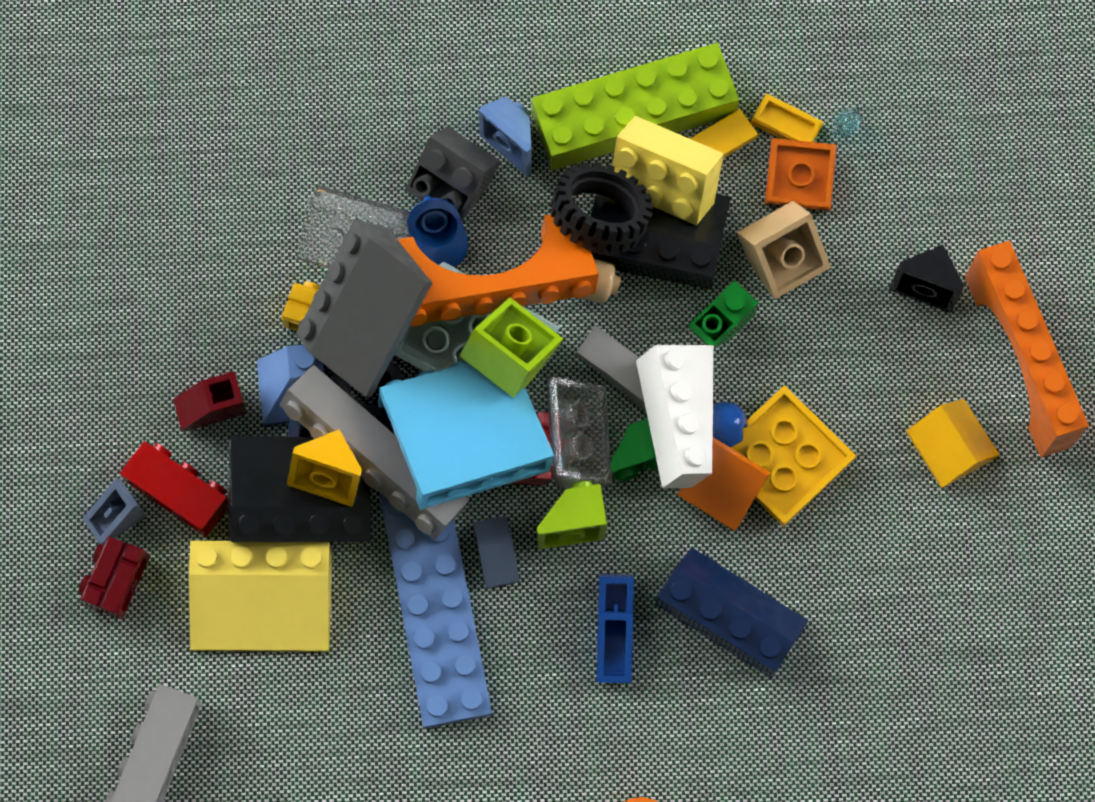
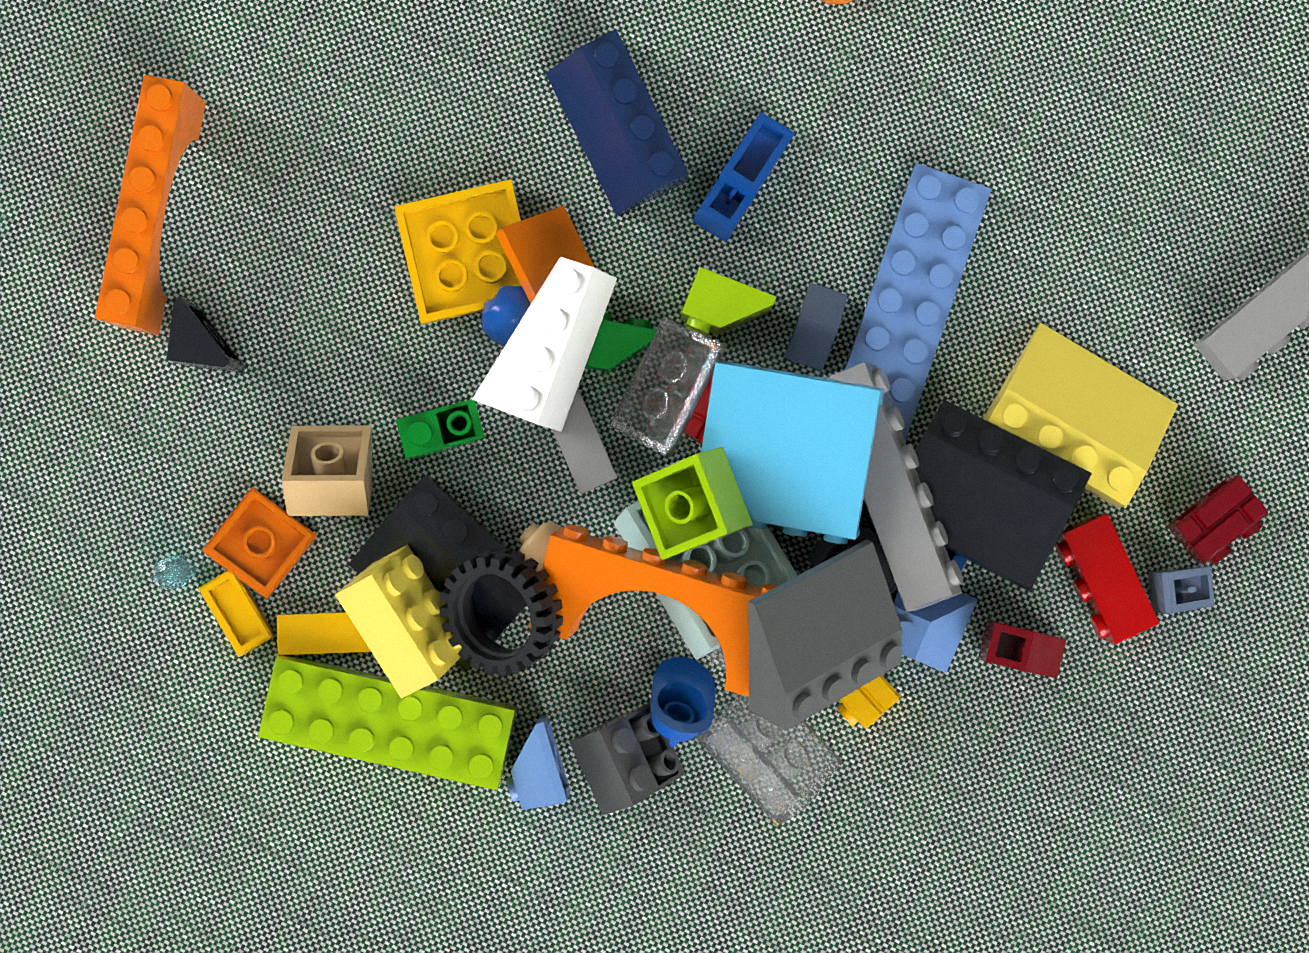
camera: 150 degrees left, 15 degrees up
(326, 468) = (955, 486): yellow slope -> none
(952, 442) = (285, 166): yellow slope -> none

